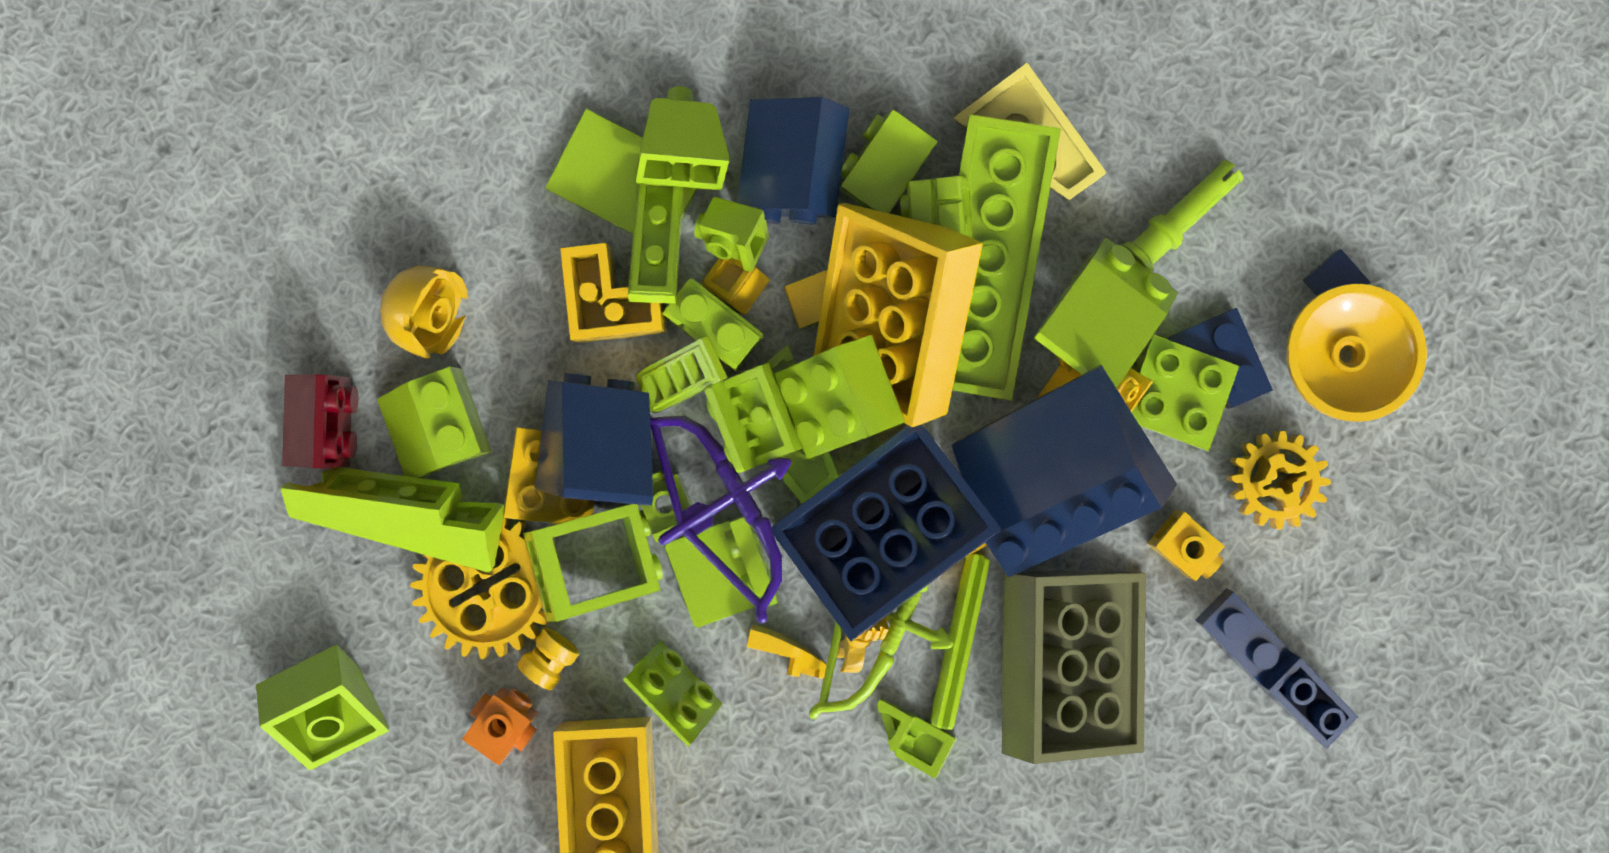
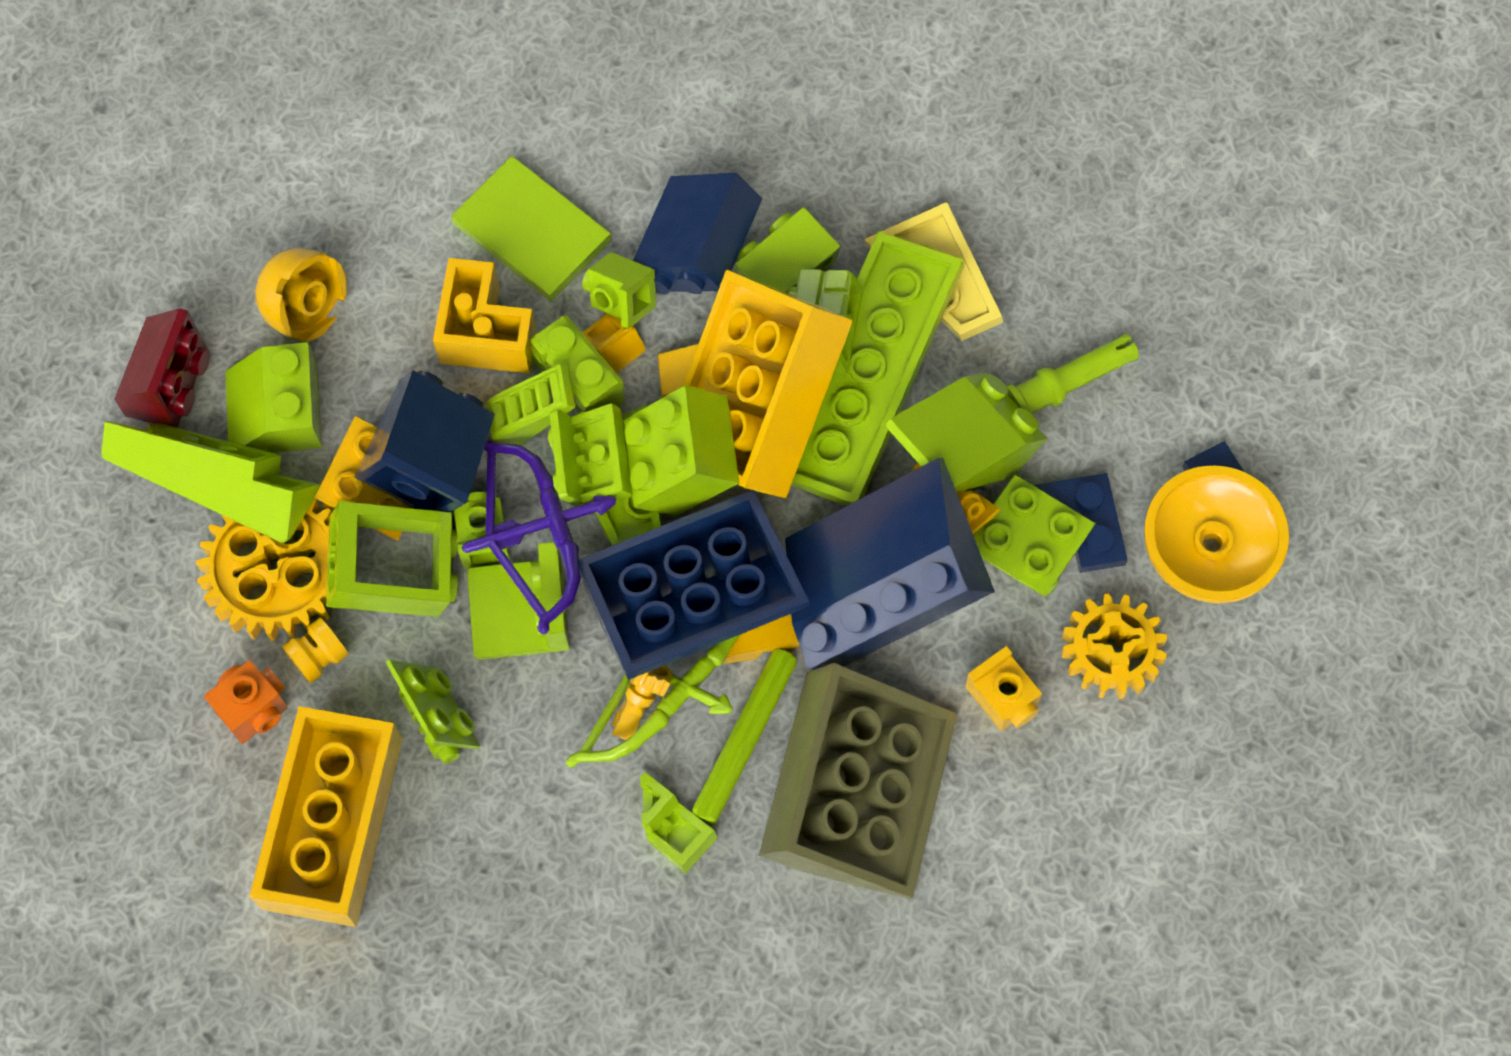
camera: 15 degrees right, 20 degrees down
(320, 708) = (69, 647): lime slope -> none
(655, 244) = (543, 273): lime tile -> none
(683, 143) = (592, 199): lime torso -> none
(801, 658) = (572, 712): yellow slope -> none
(1276, 668) = (1070, 835): dark blue slope -> none

